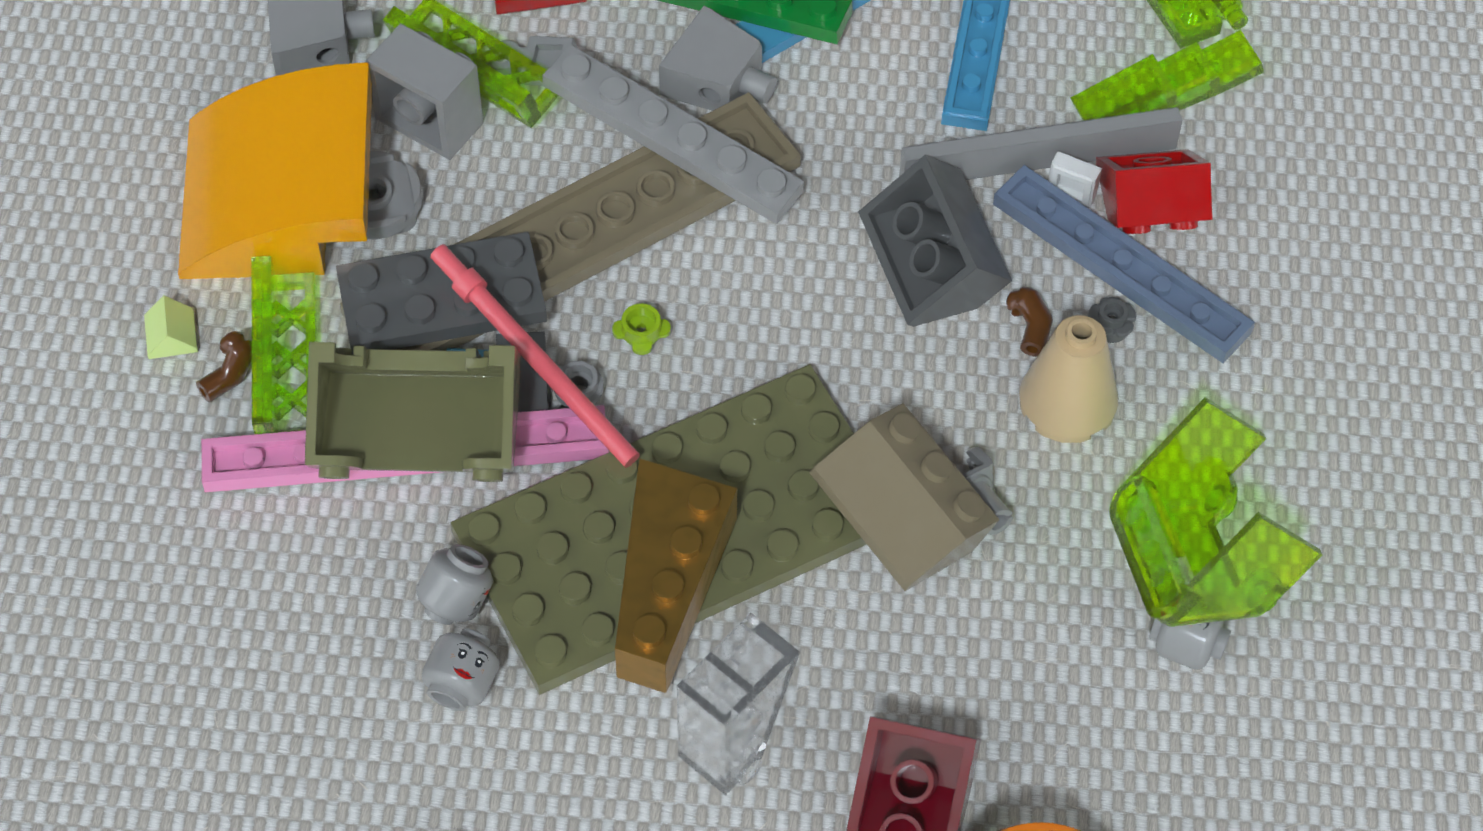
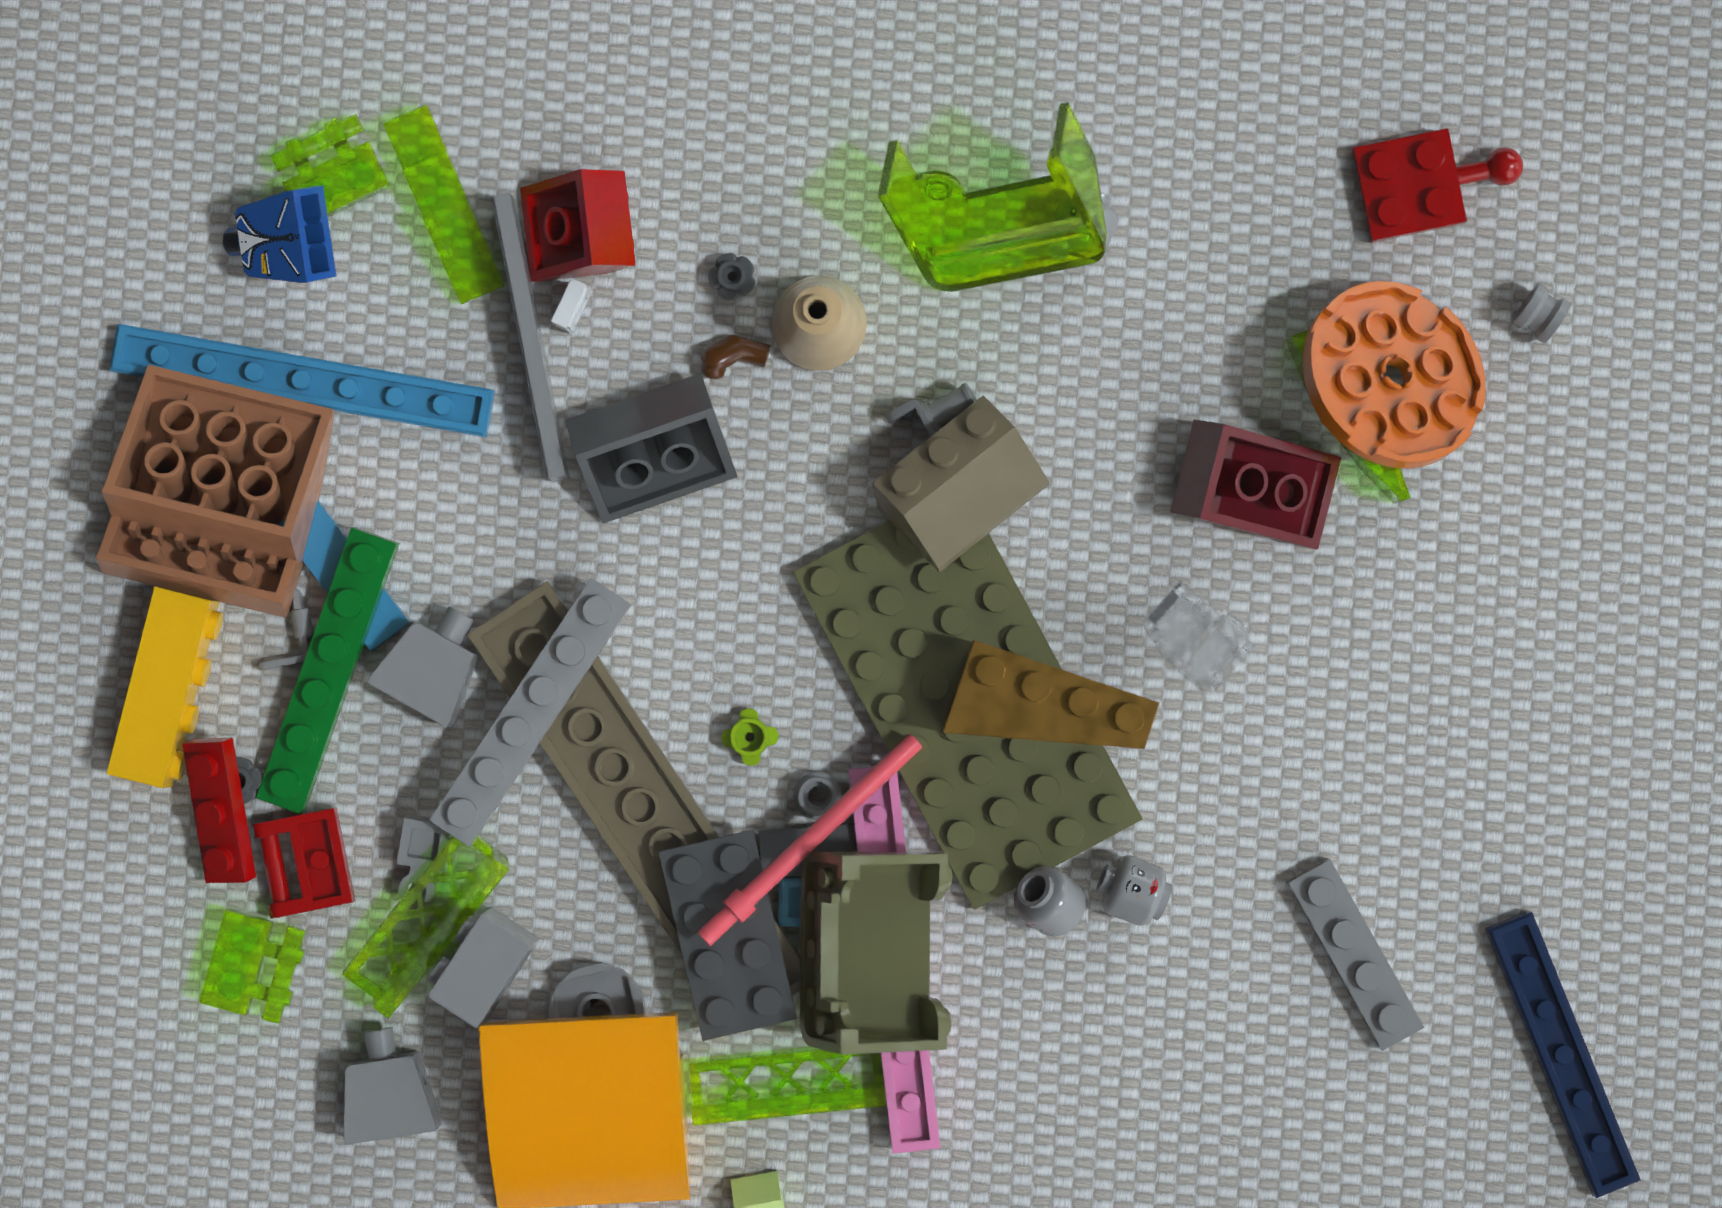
camera: 90 degrees left, 30 degrees up
(233, 369) = (807, 1134): reddish brown arm -> none
(1124, 264) = (668, 263): sand blue plate -> none

